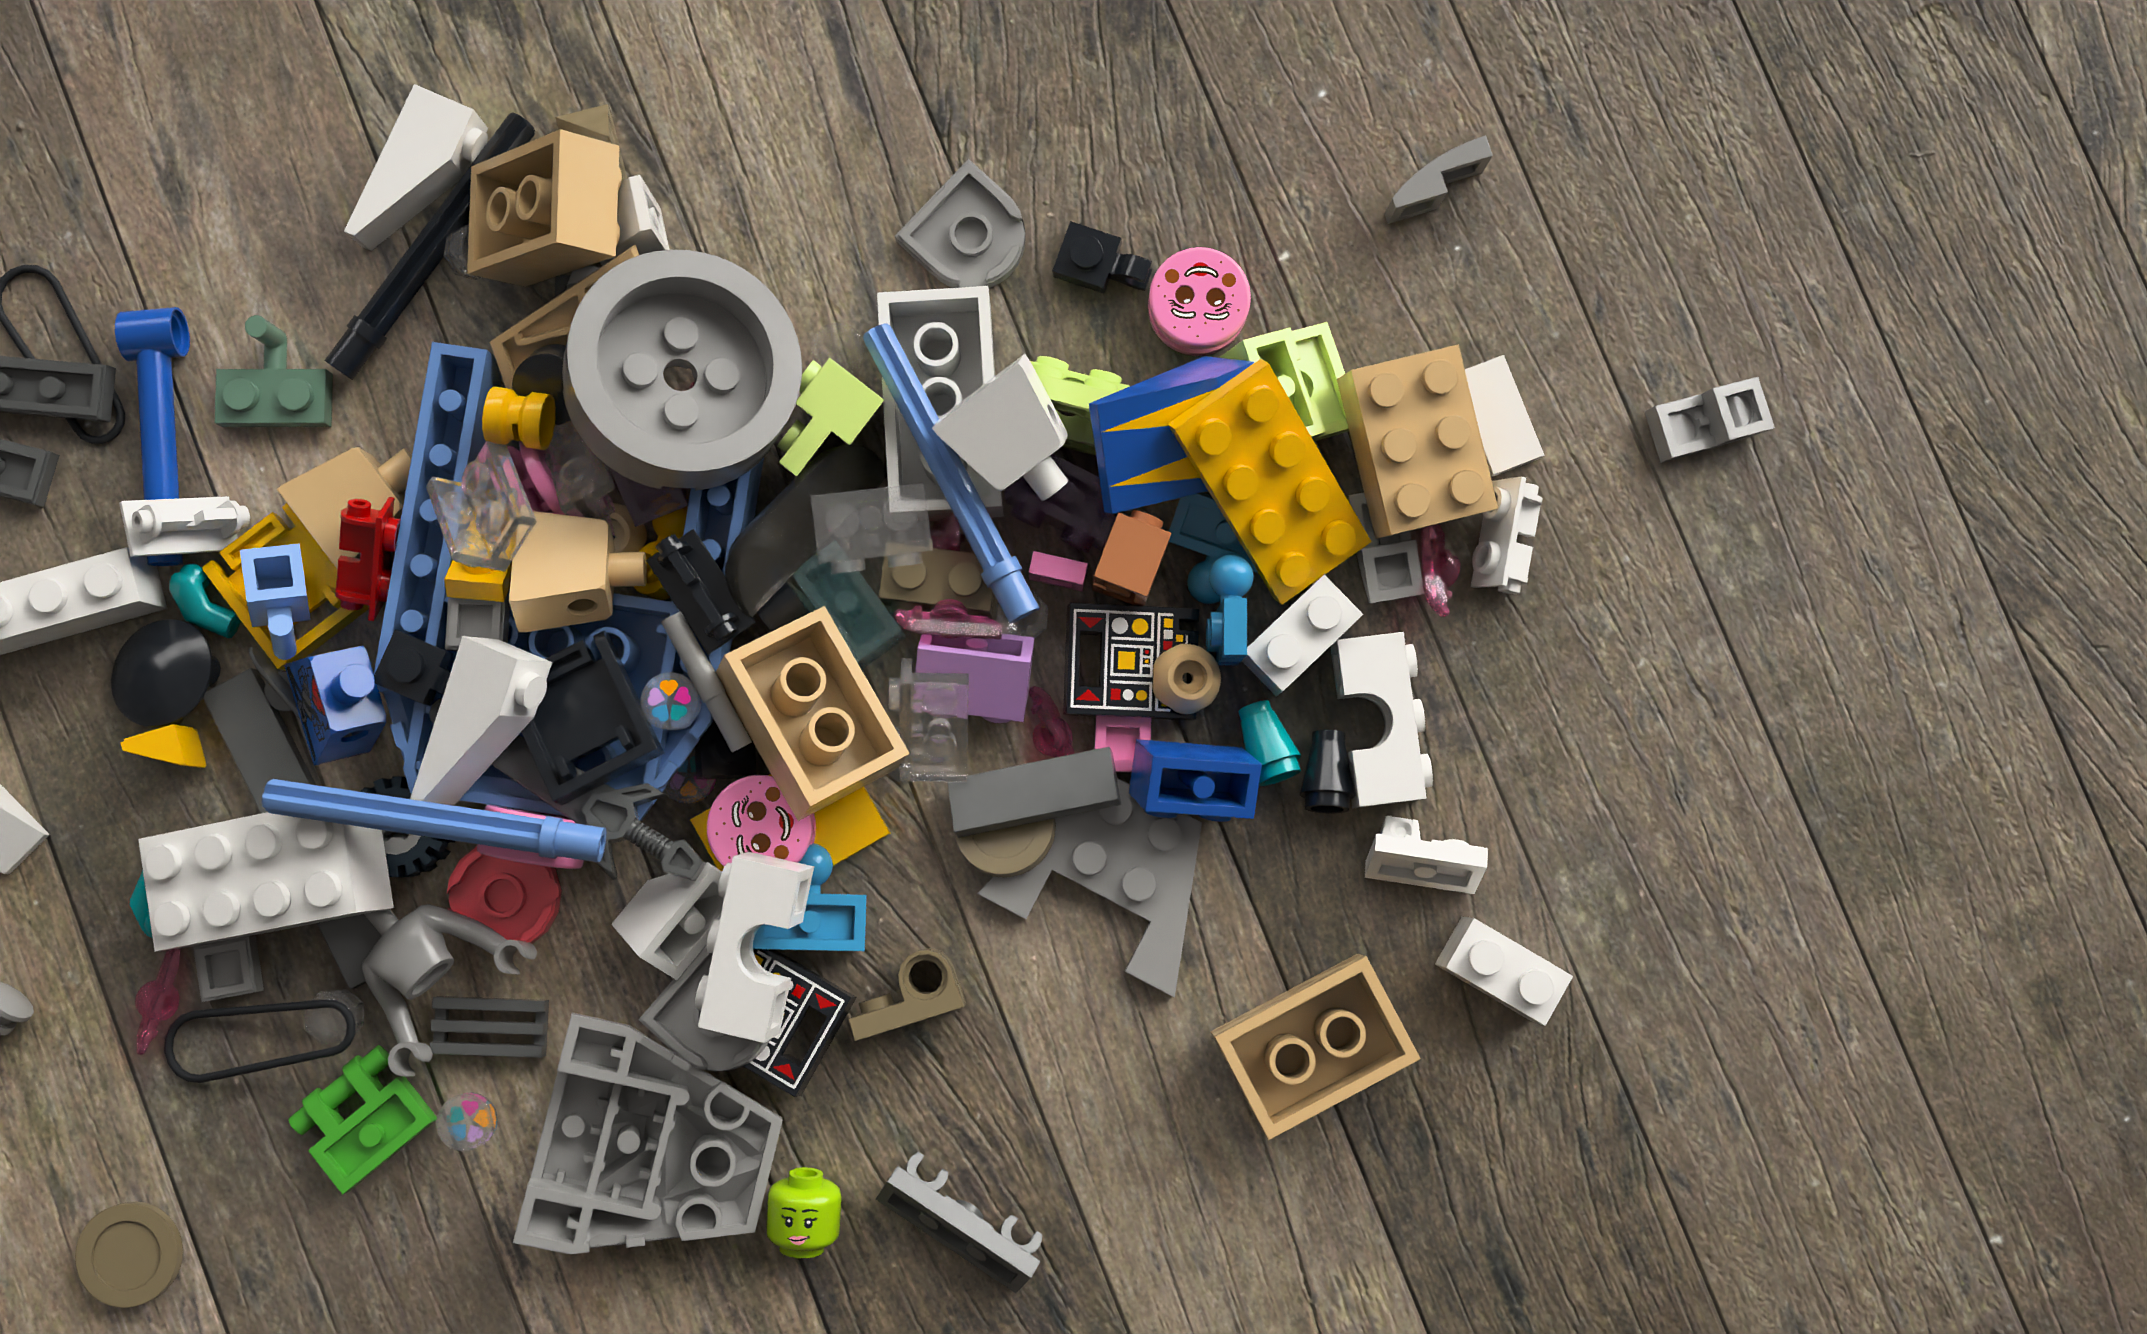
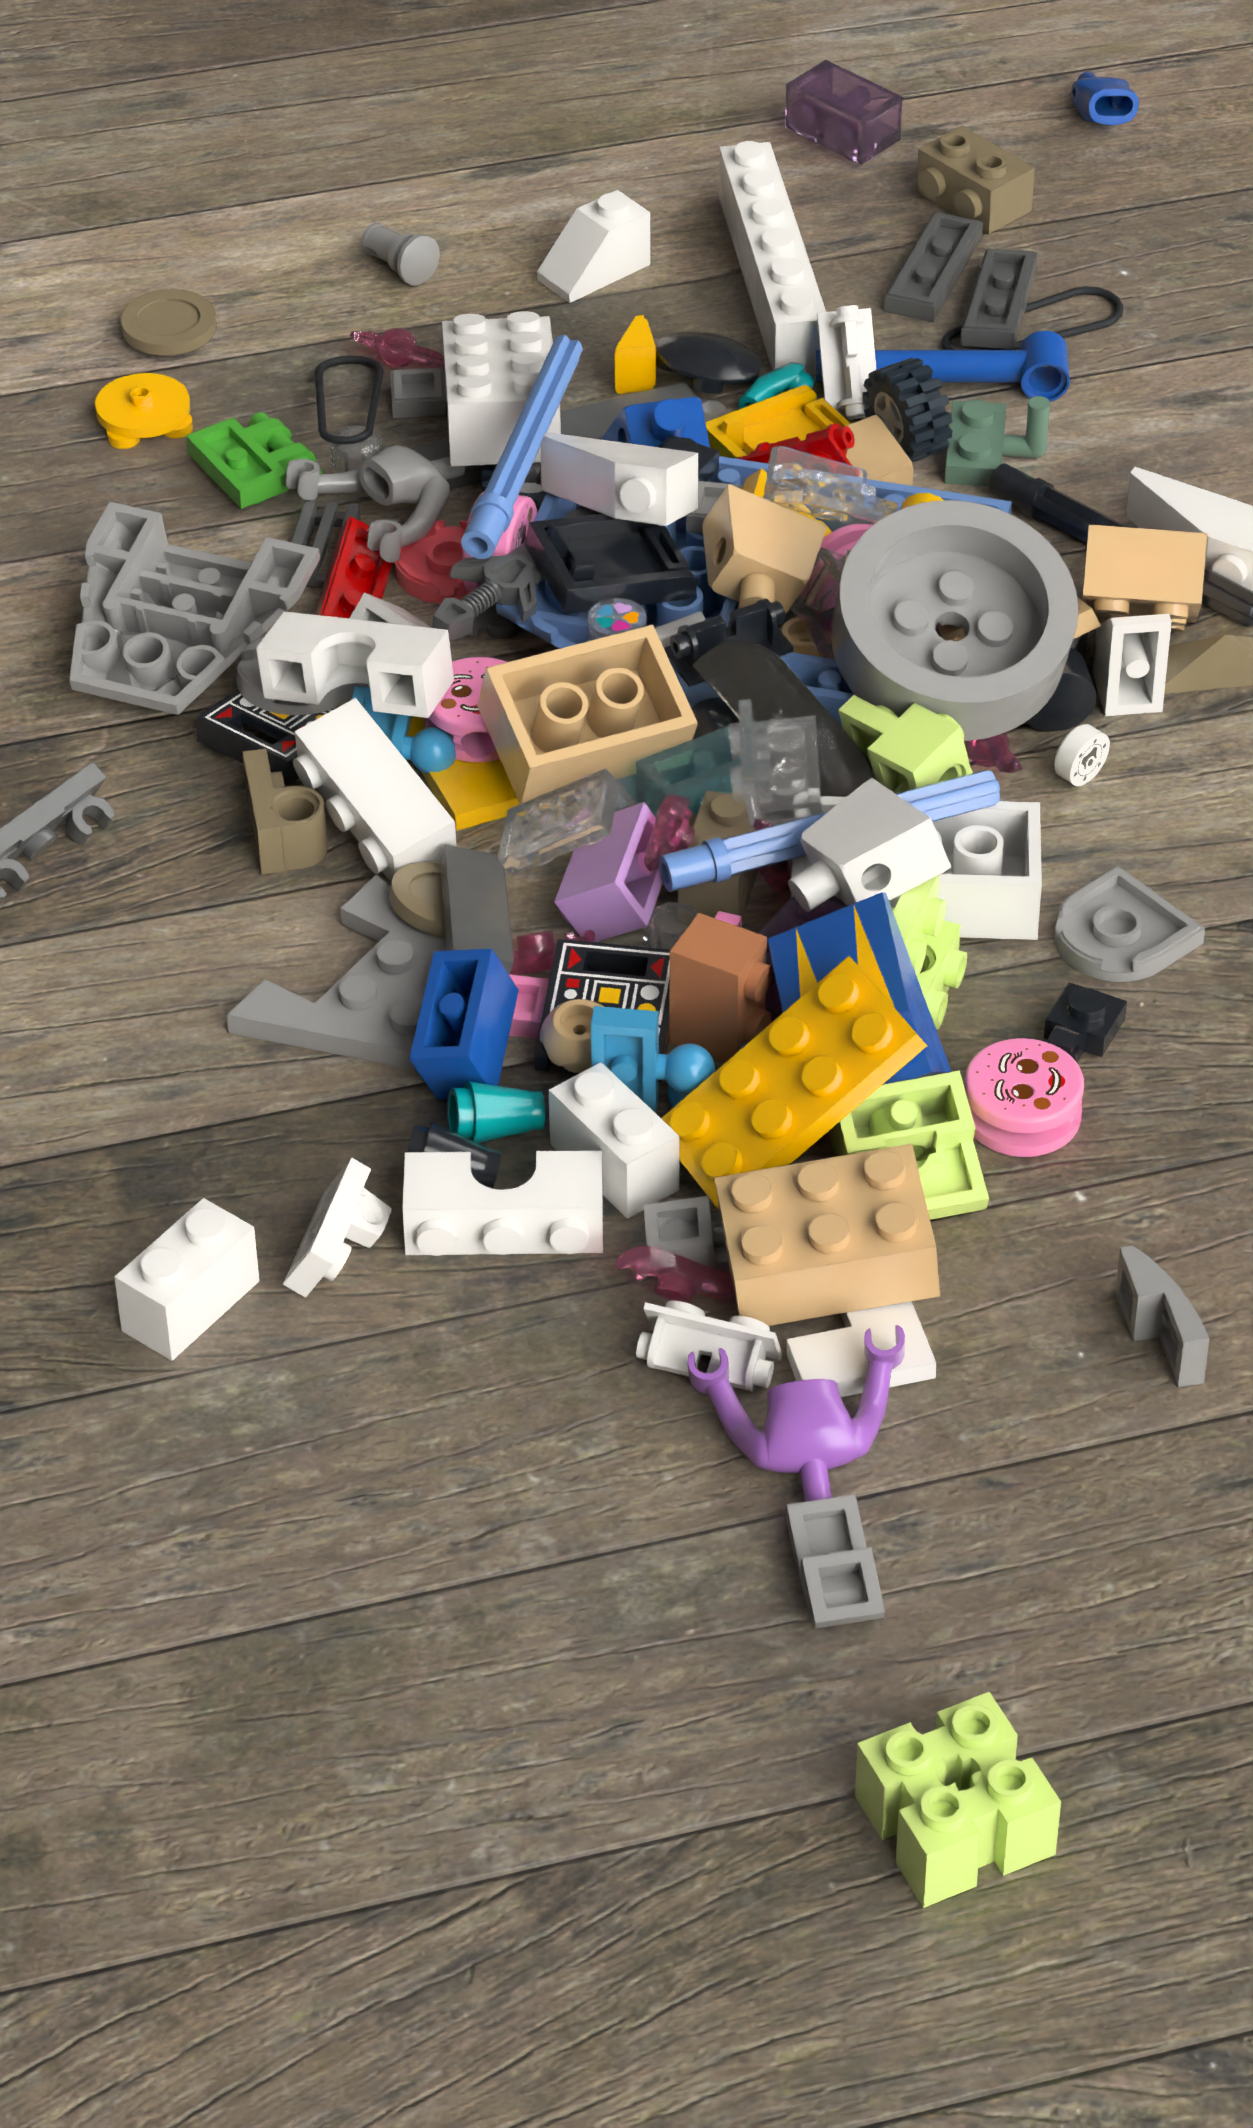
camera: 100 degrees right, 40 degrees down
(261, 458) = (910, 407): none -> black wheel
(276, 593) = (774, 405): light blue brick -> none
(279, 1252) = (143, 408): none -> yellow piece
(466, 1121) = (233, 527): clear tile -> none
(567, 983) = (352, 572): none -> red tile
(756, 267) = (1081, 754): none -> white tile
(803, 1213) = (77, 725): lime head -> none
(896, 908) = (372, 790): none -> white brick
(1315, 1045) = (145, 1102): tan brick -> none
(1591, 449) = (805, 1419): none -> medium lavender piece
(1943, 280) = (957, 1799): none -> yellowish green brick

